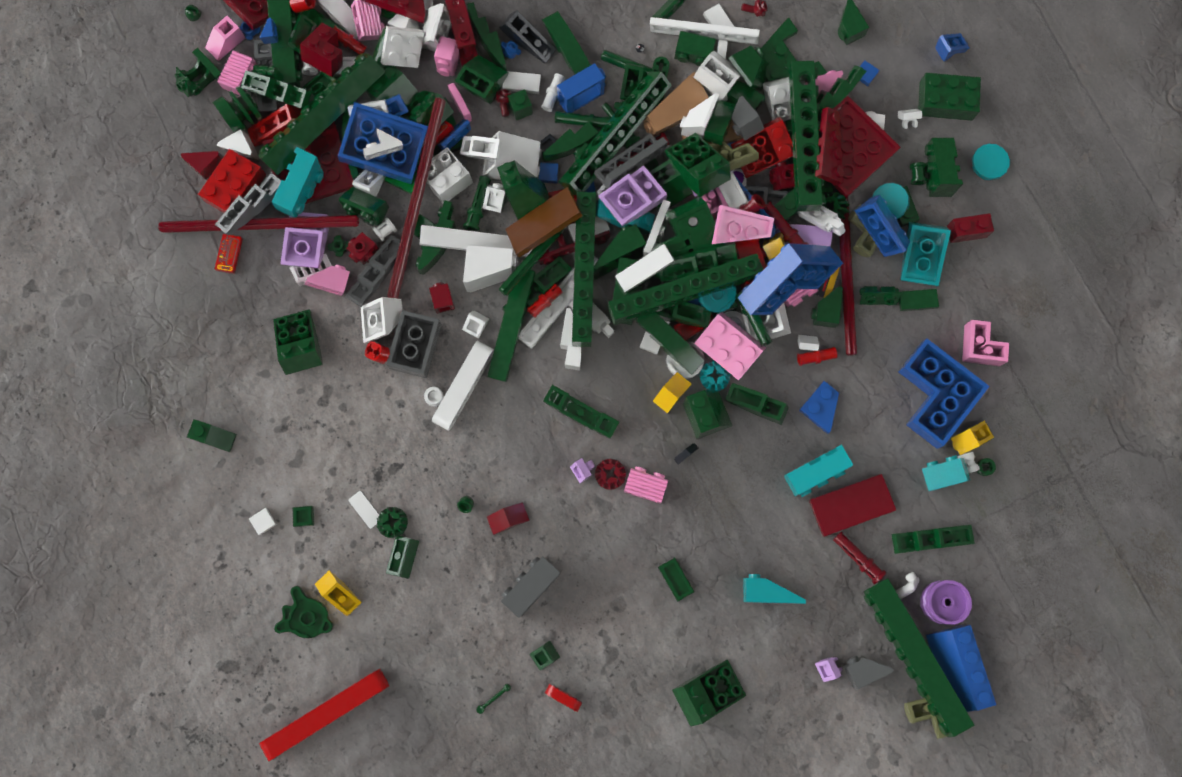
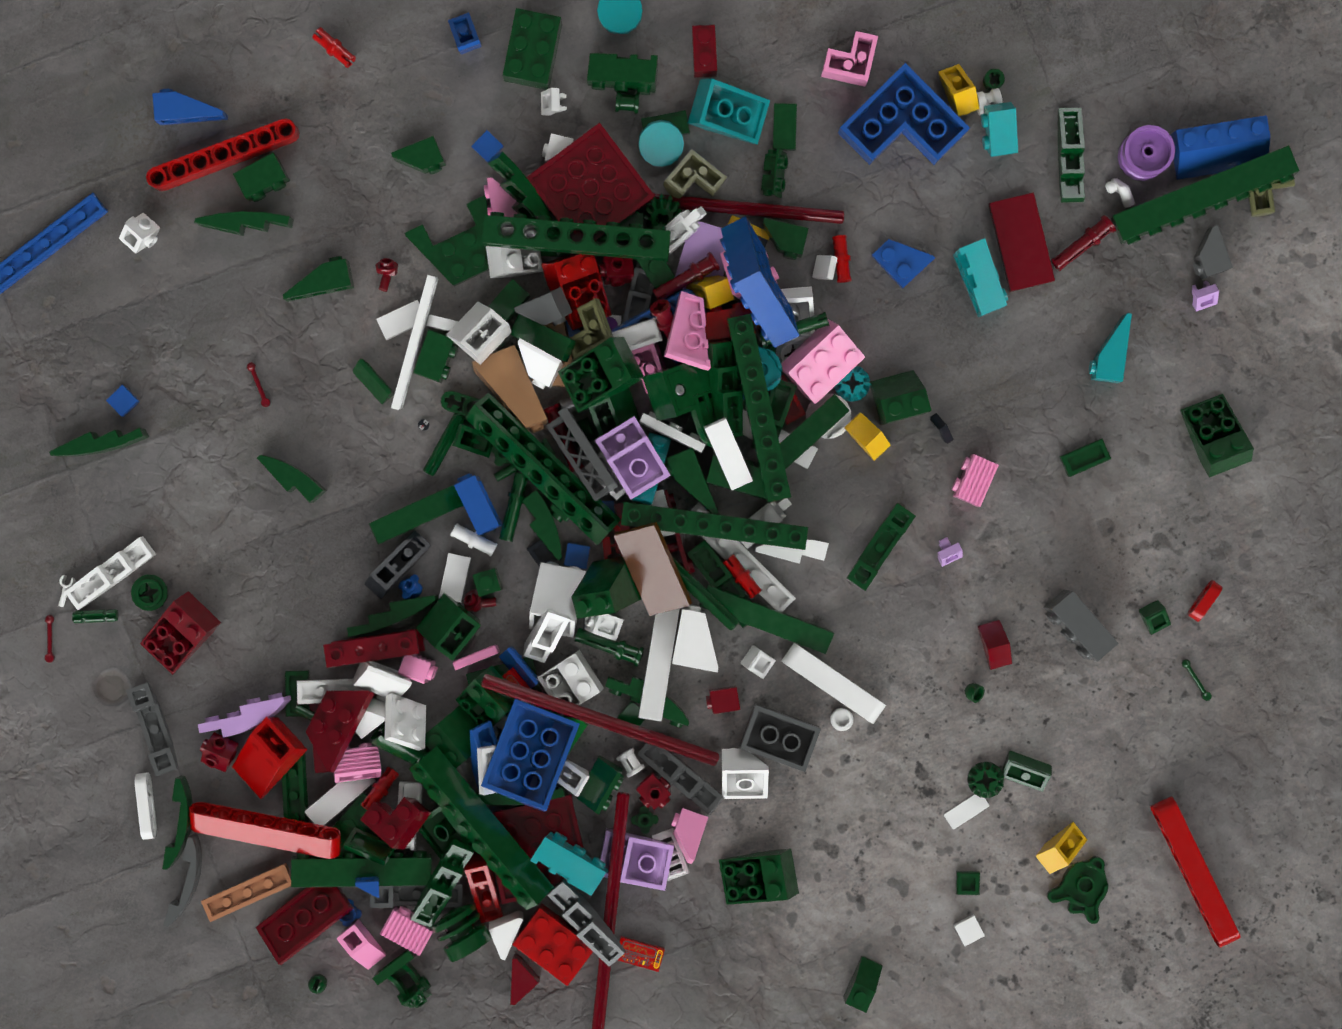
camera: 85 degrees left, 10 degrees up
(268, 71) = (414, 894): dark green axle -> none
(377, 352) = (785, 782): red beam -> none
(387, 145) = (540, 749): white slope -> none
(611, 483) = (956, 531): dark red gear -> none
(751, 65) = (471, 290): dark green slope -> none
(757, 403) = (891, 337): dark green slope -> none
(831, 154) = (594, 209): dark red wing -> none
(882, 226) = (696, 157): blue slope -> none

